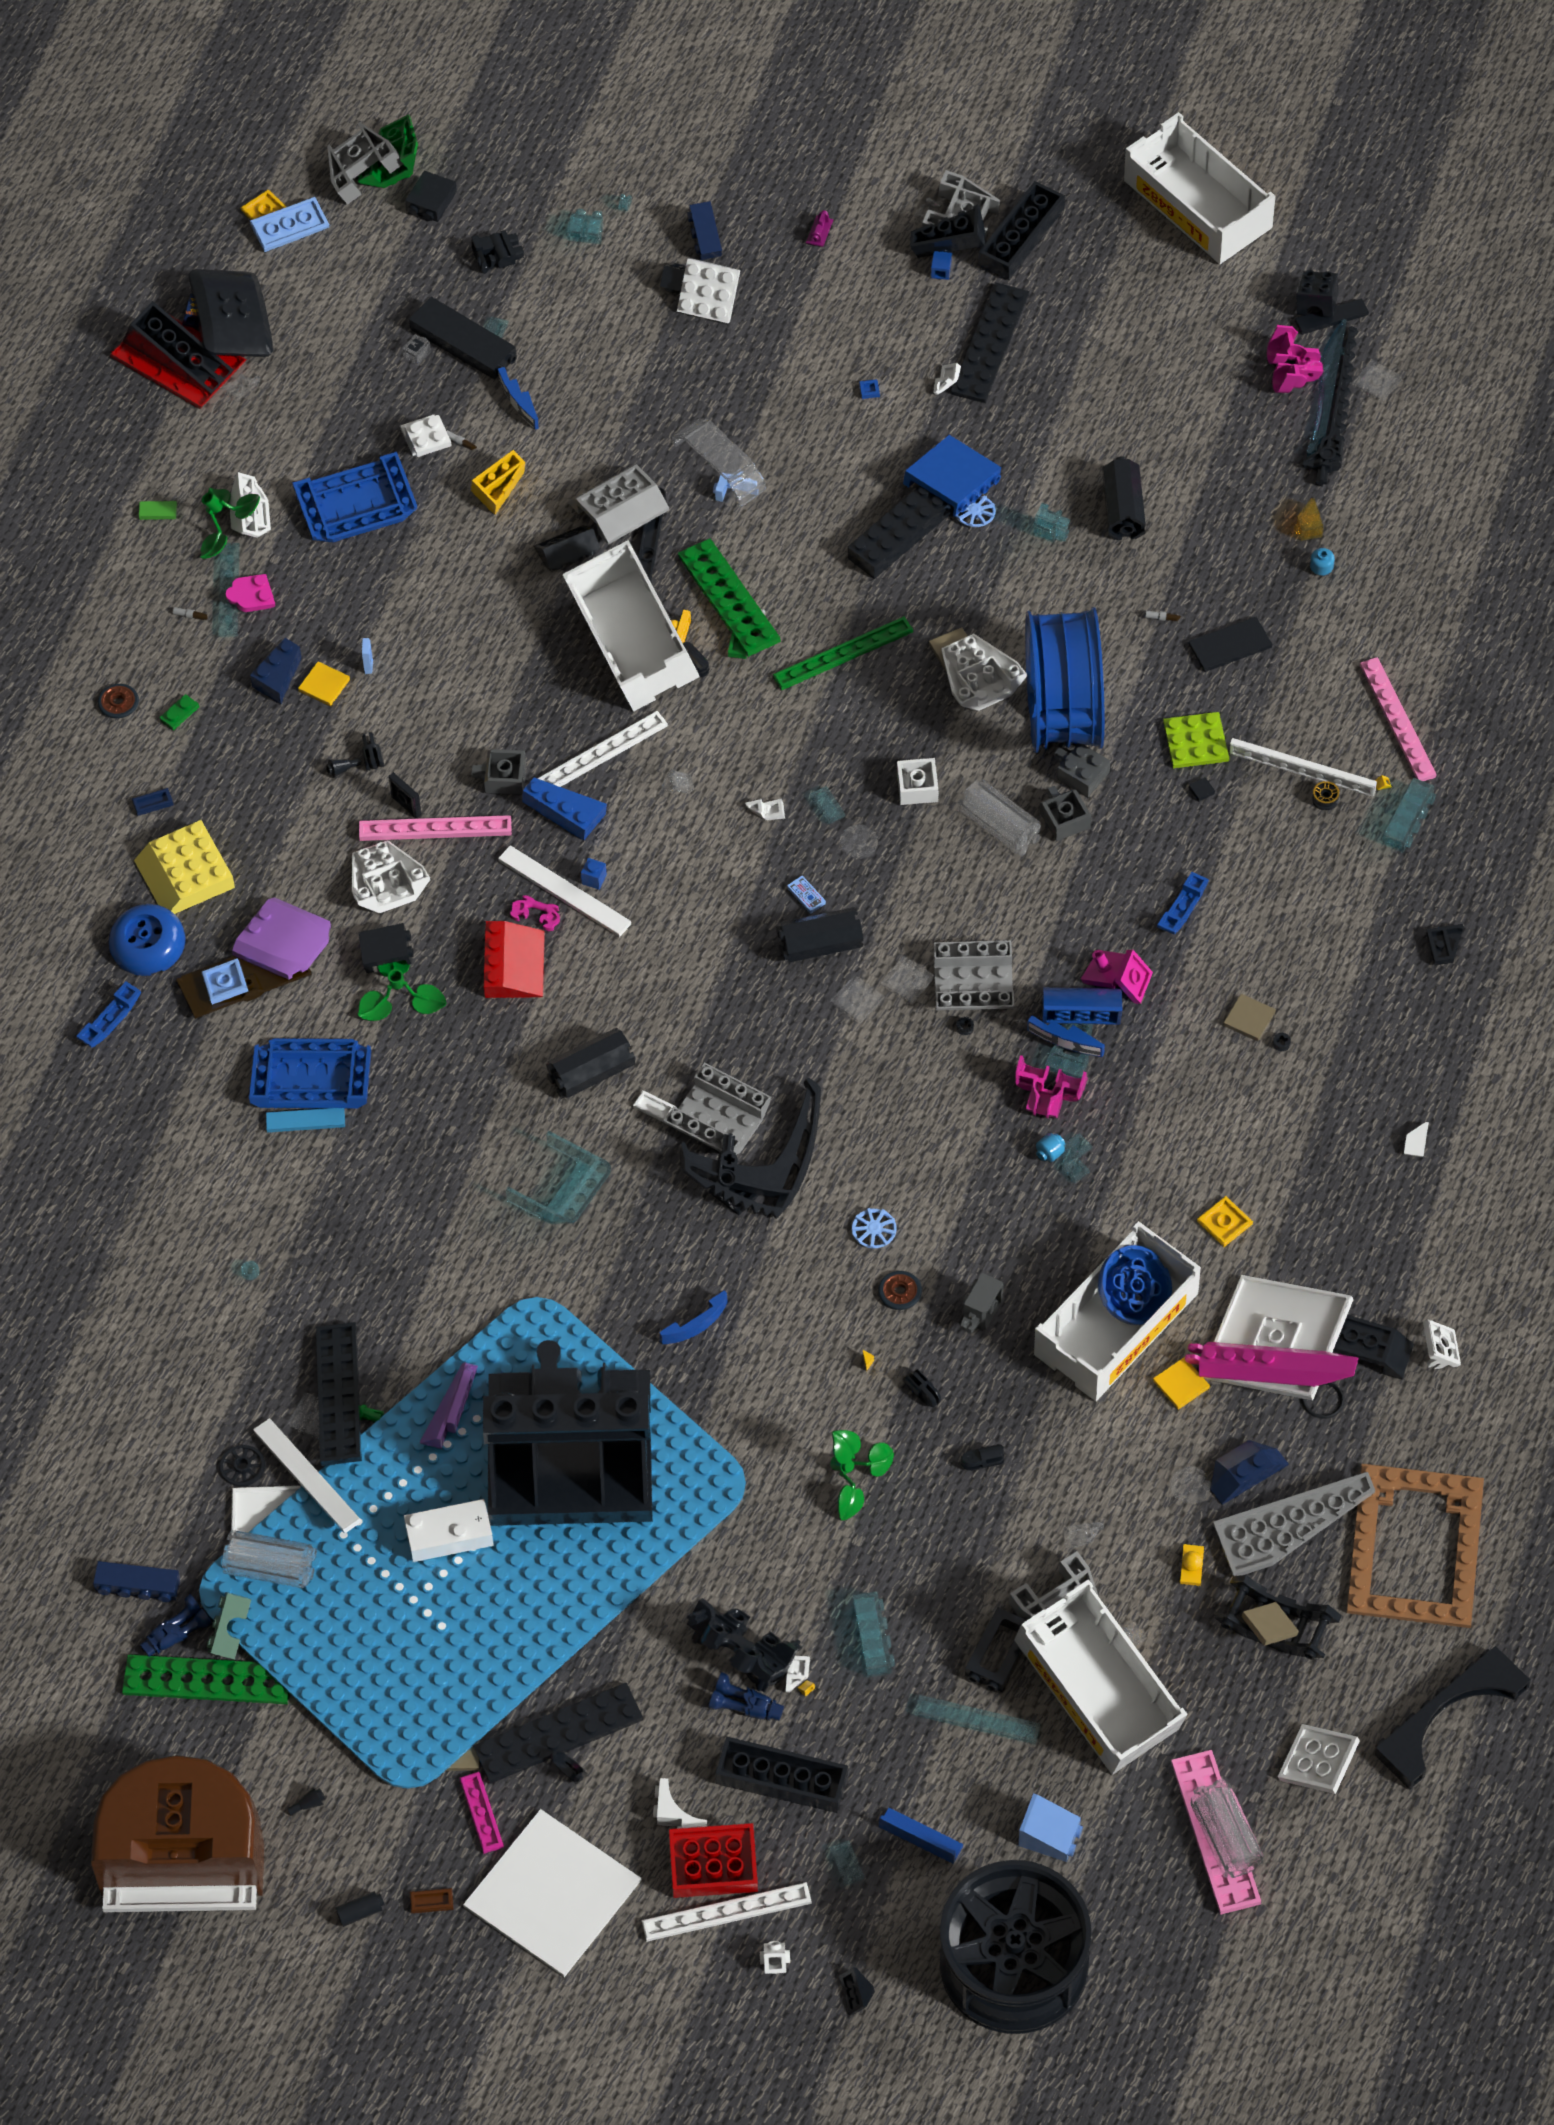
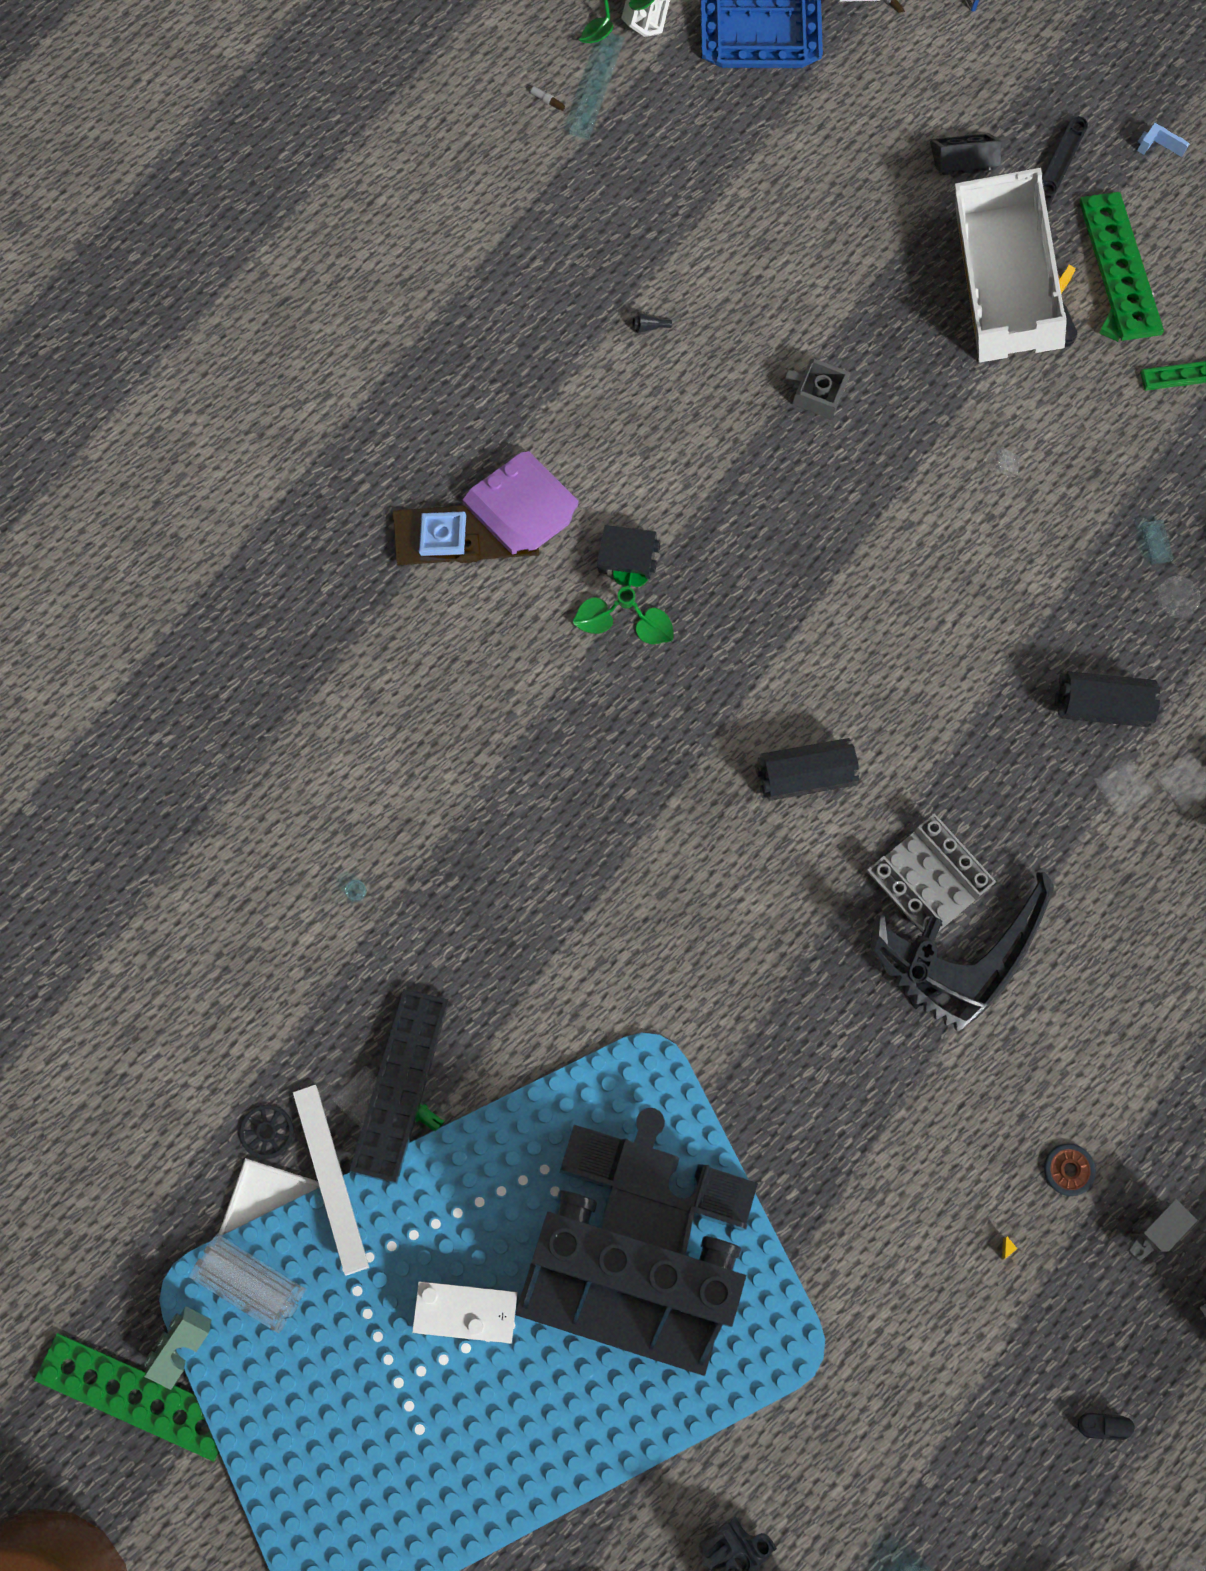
camera: 10 degrees right, 15 degrees up
(115, 1012) = (308, 533): blue slope -> none
(121, 710) = (437, 182): copper wheel -> none
(136, 1581) = (97, 1242): dark blue brick -> none
(149, 951) = (394, 470): blue brick -> none
(152, 801) = (438, 297): dark blue tile -> none
(169, 1631) = (109, 1322): dark blue piece -> none
(179, 712) = (499, 205): green plate -> none
(184, 868) = (443, 386): light yellow slope -> none
(251, 593) = (618, 97): dark pink plate -> none
(276, 671) = (616, 192): dark blue wedge -> none
(305, 1119) = (476, 726): dark azure tile -> none
(310, 1074) = (499, 674): blue slope -> none
(324, 683) = (661, 223): yellow tile -> none
(367, 656) = (716, 207): light blue tile -> none
(371, 750) = (686, 315): black arm -> none
(386, 877) = (655, 468): white wedge -> none
(405, 795) = (705, 380): black tile -> none
(435, 828) = (726, 428): bright pink plate -> none
(451, 1408) = (519, 1147): medium lavender wedge -> none
(498, 481) = (916, 55): yellow wedge -> none
(513, 960) = (761, 613): slope -> none
(521, 907) = (817, 575): dark pink helmet -> none
(564, 807) = (872, 451): blue wedge -> none
(564, 891) = (842, 548): white tile -> none
(575, 1192) = (744, 920): clear light blue windscreen -> none
(593, 873) = (880, 539): blue brick -> none
(605, 750) = (927, 399): white tile -> none
(621, 503) = (1039, 122): light grey slope -> none
(652, 1106) = (861, 842): white tile -> none
(675, 1333) = (801, 1137): blue slope -> none
(724, 458) = (1165, 105): clear windscreen -> none
(768, 810) = (1089, 526): white slope -> none
(806, 894) = (1103, 641): light blue tile -> none
(844, 1447) = (949, 1386): green plant -> none
(874, 1227) = (1062, 1080): light blue wheel -> none
(922, 1388) = (1061, 1309): black arm -> none

